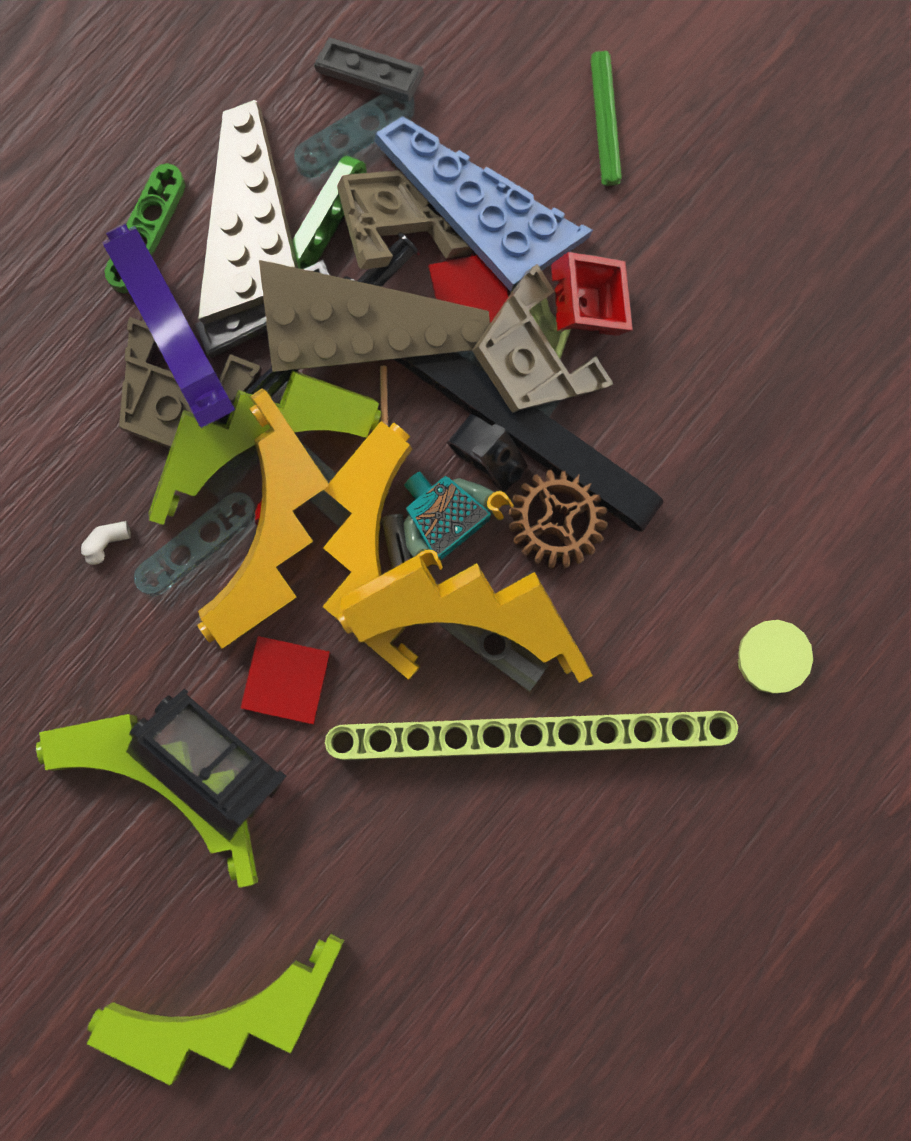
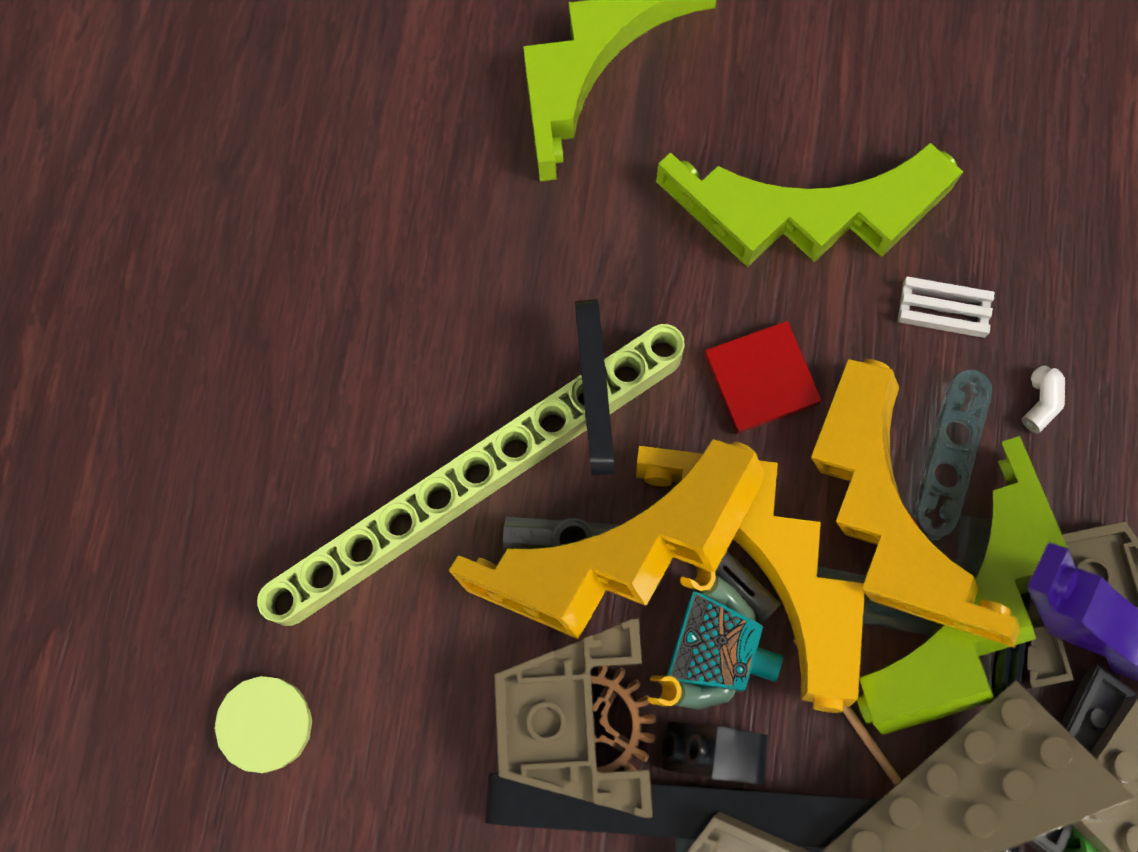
camera: 155 degrees right, 5 degrees down
(99, 626) = (947, 291): none -> white tile
(203, 763) = (786, 241): black door -> none
(413, 737) = (594, 387): none -> black beam
(585, 531) = (549, 722): none -> dark tan wing

